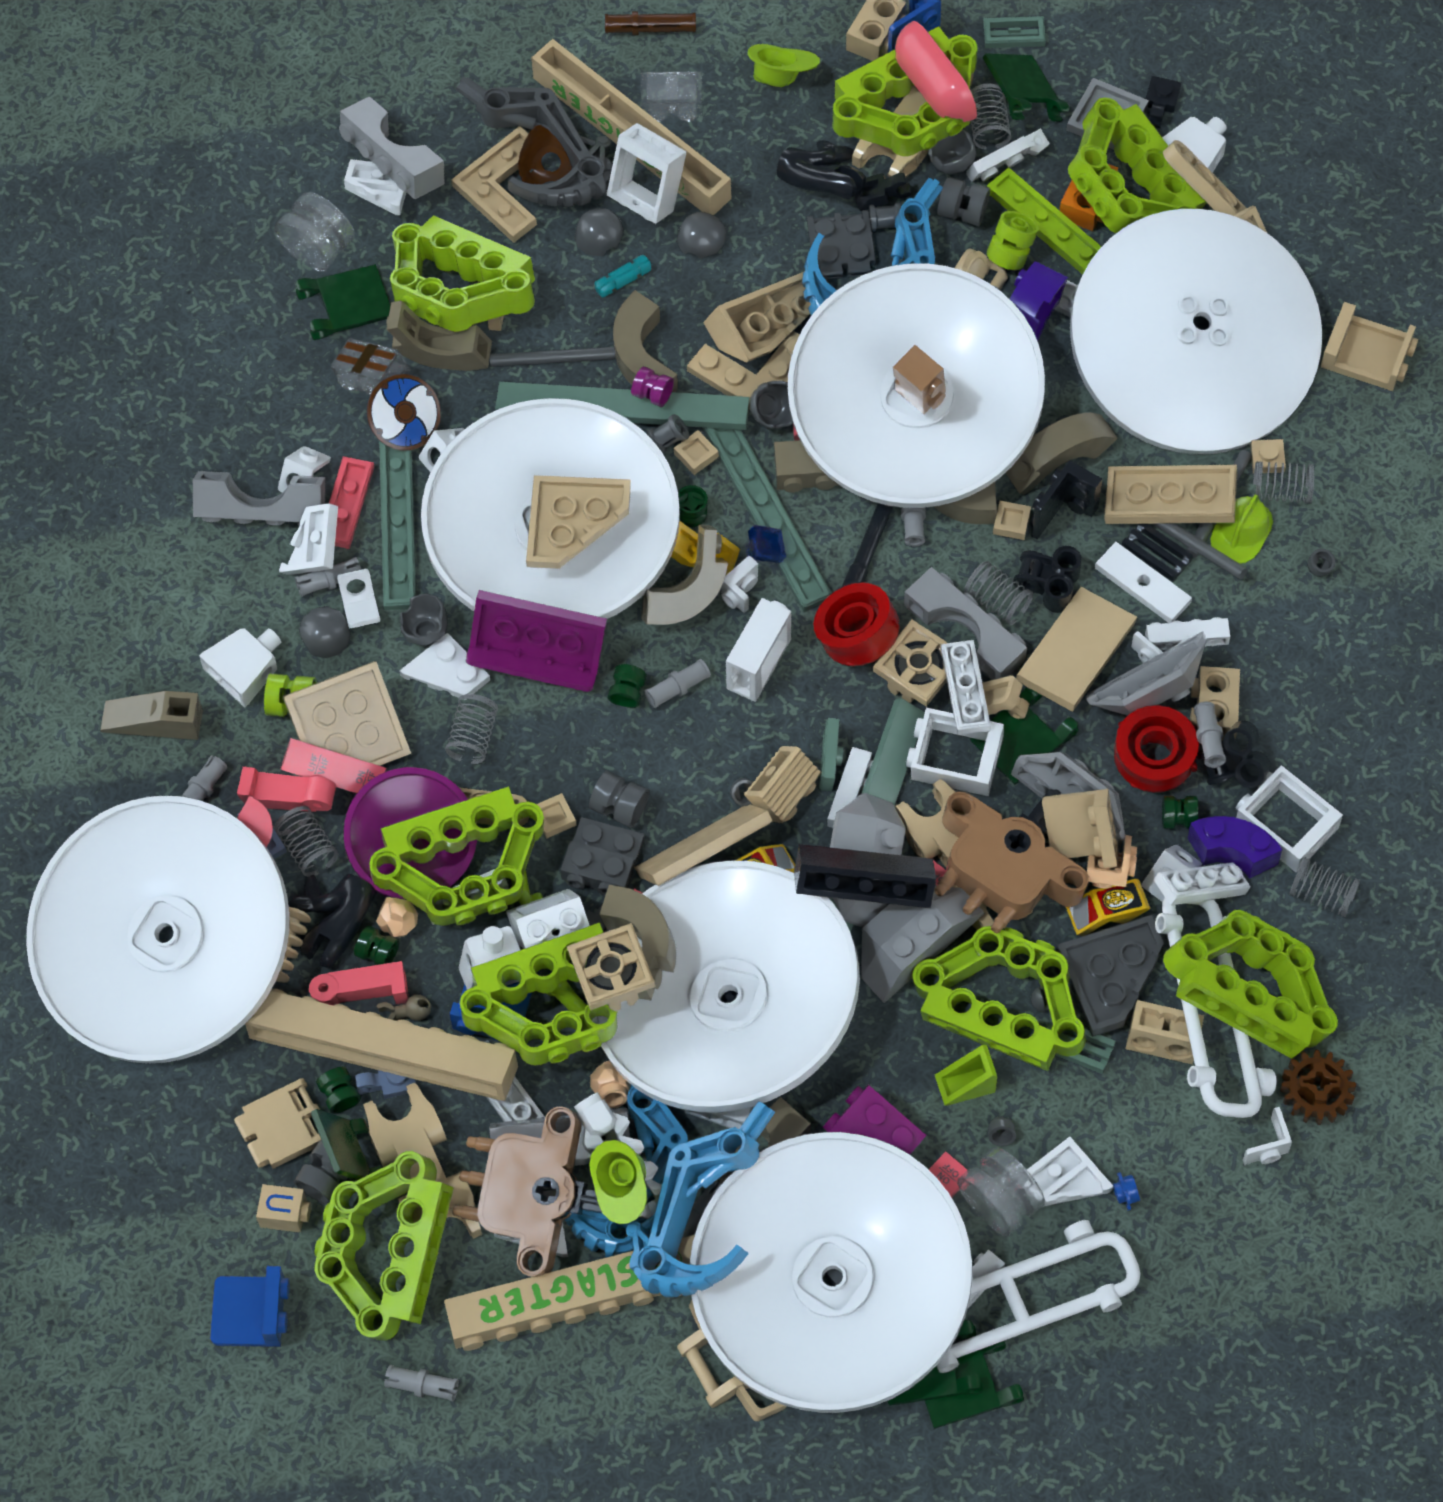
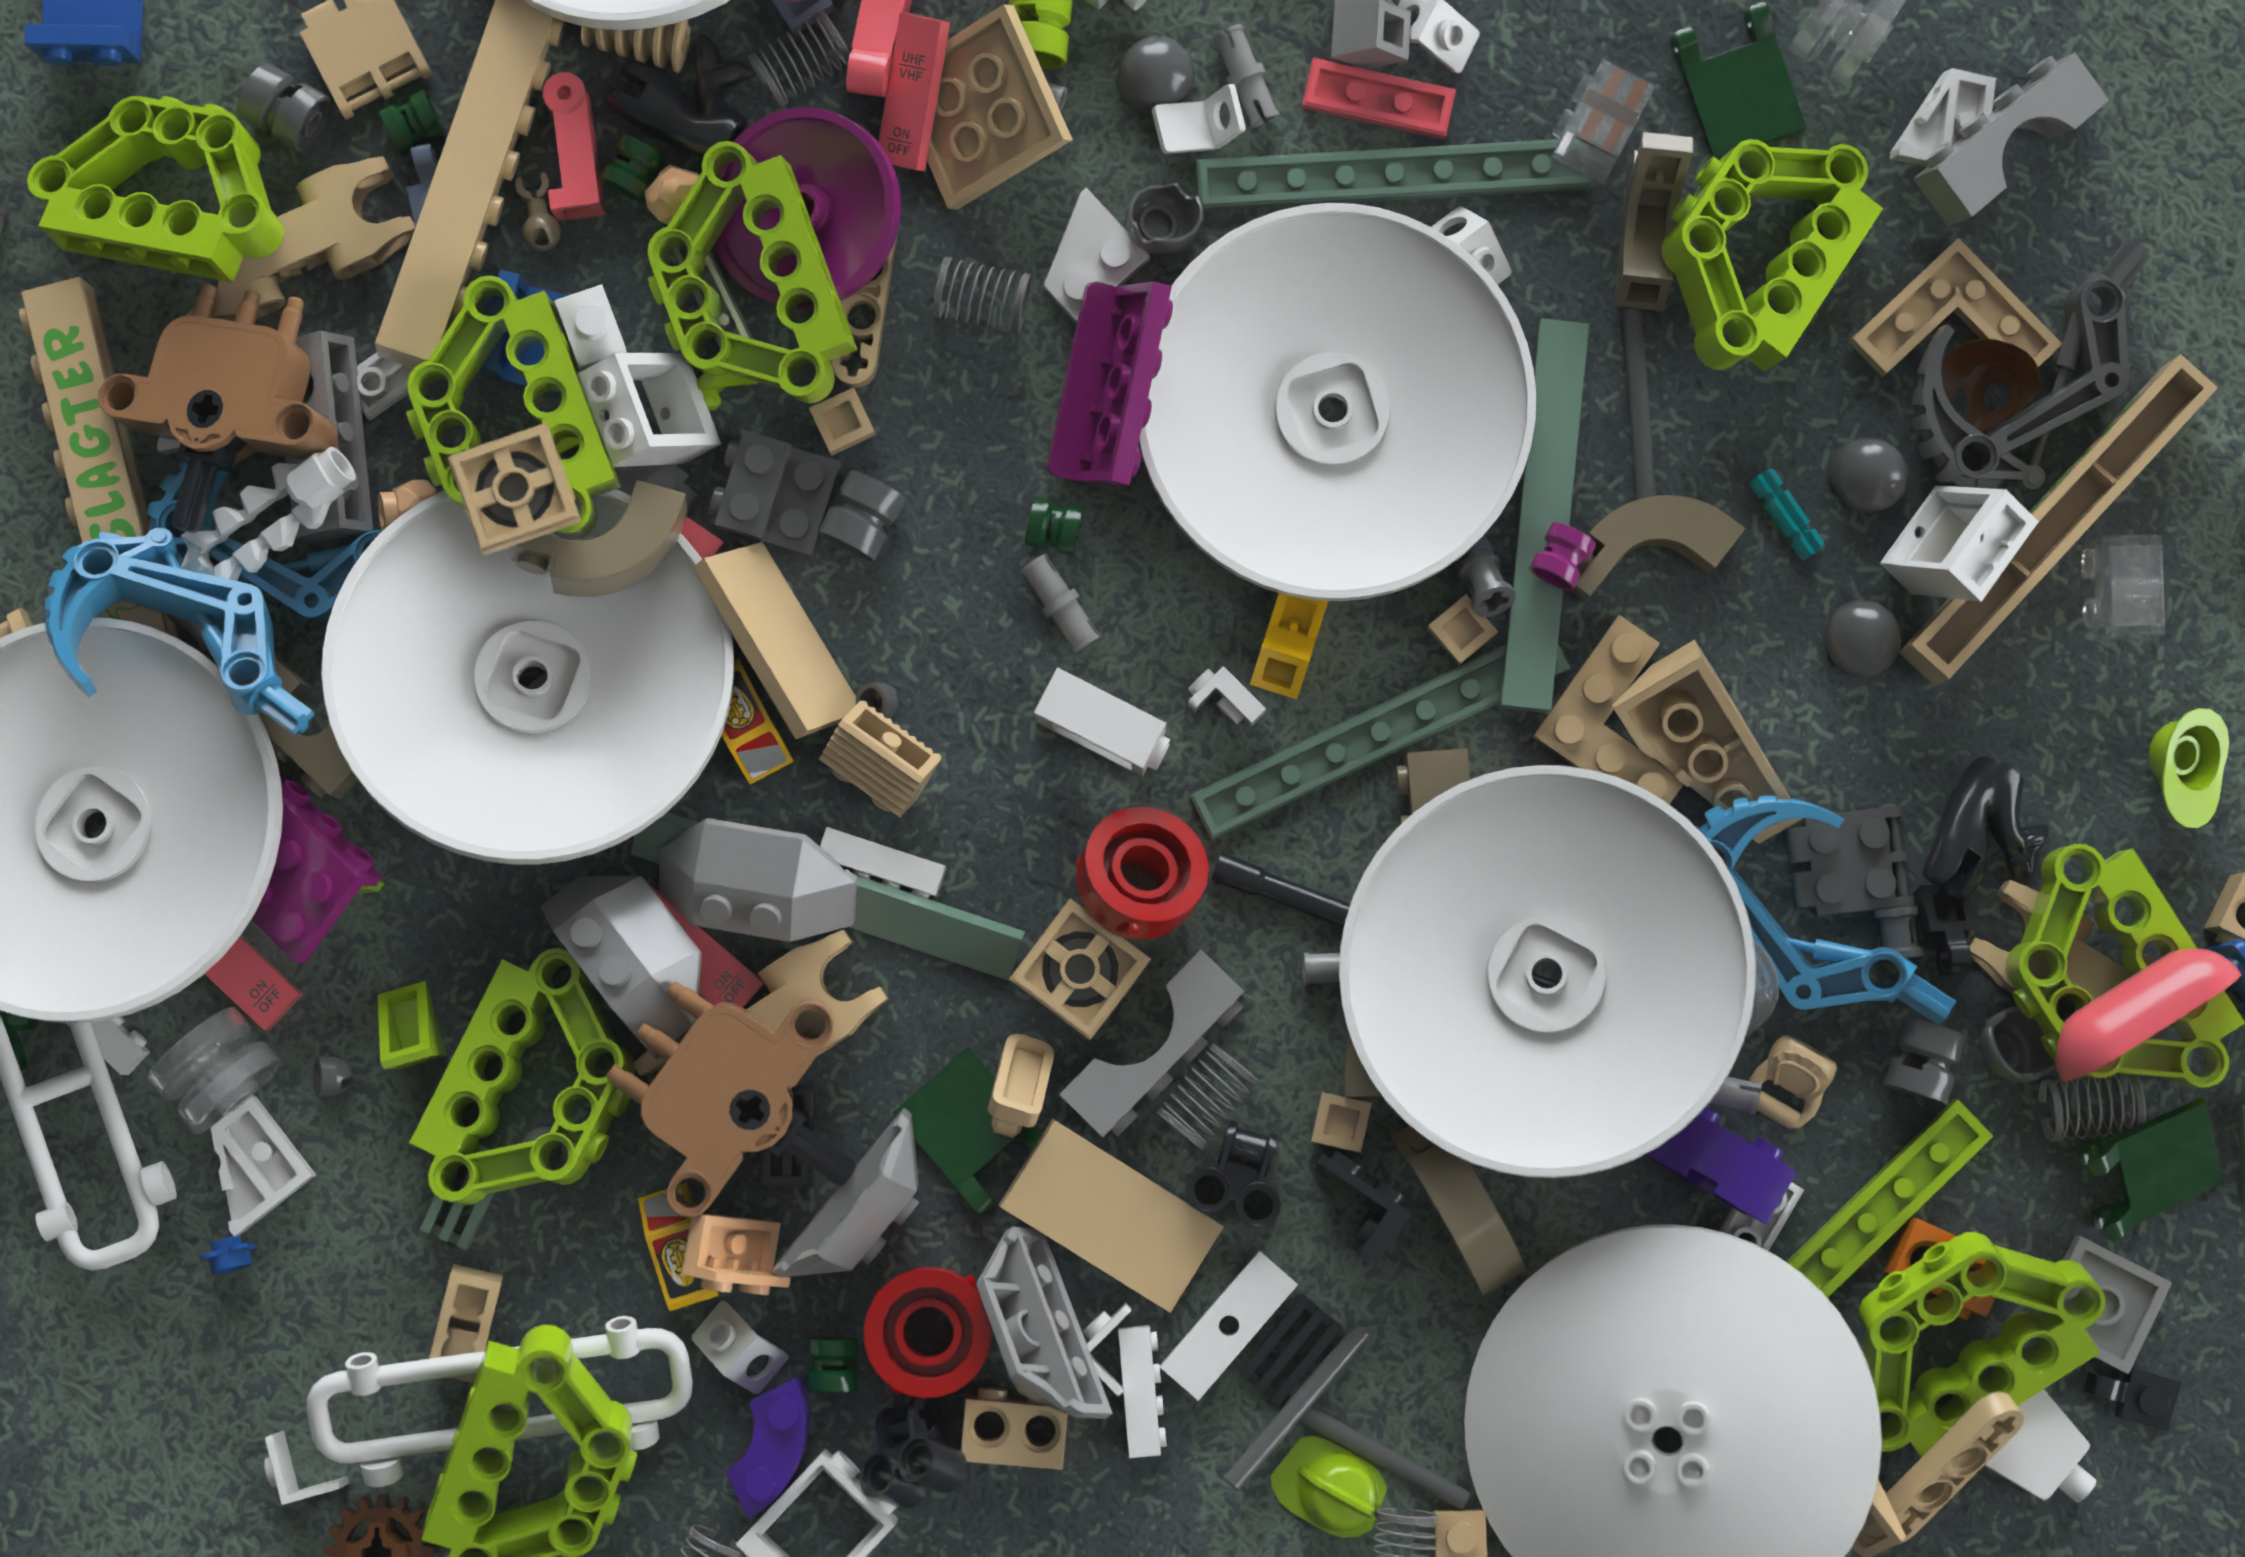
camera: 90 degrees right, 20 degrees up
(283, 1208) = (233, 50): tan brick -> none
(313, 541) = (1291, 46): white wing -> none
(342, 1144) = (295, 124): dark green flag -> none
(403, 412) = (1520, 173): shield -> none
(571, 515) = (1316, 429): tan plate -> none
(619, 1181) = (206, 511): lime piece -> none
(695, 500) = (1363, 615): dark green wheel -> none
(696, 592) = (1200, 620): arch -> none
(766, 544) = (1288, 736): clear blue tile -> none
(771, 405) = (1536, 740): dark grey hair -> none
(831, 754) = (934, 834): sand green plate -> none
(864, 876) = (679, 874): black brick -> none
(920, 380) = (1525, 972): medium nougat brick -> none
(945, 722) = (928, 964): white window -> none
(967, 701) = (991, 1041): white tile -> none
(1010, 154) = (2019, 1137): white hinge -> none
(1012, 240) = (1845, 1137): lime wheel -> none
(1082, 825) = (785, 1213): tan bracket -> none
(1111, 971) = (573, 1247): dark grey plate -> none
(1171, 494) = (1380, 1377): tan tile -> none
(1202, 883) = (689, 1373): white tile -> none
(1209, 734) = (935, 1415): light grey pin -> none

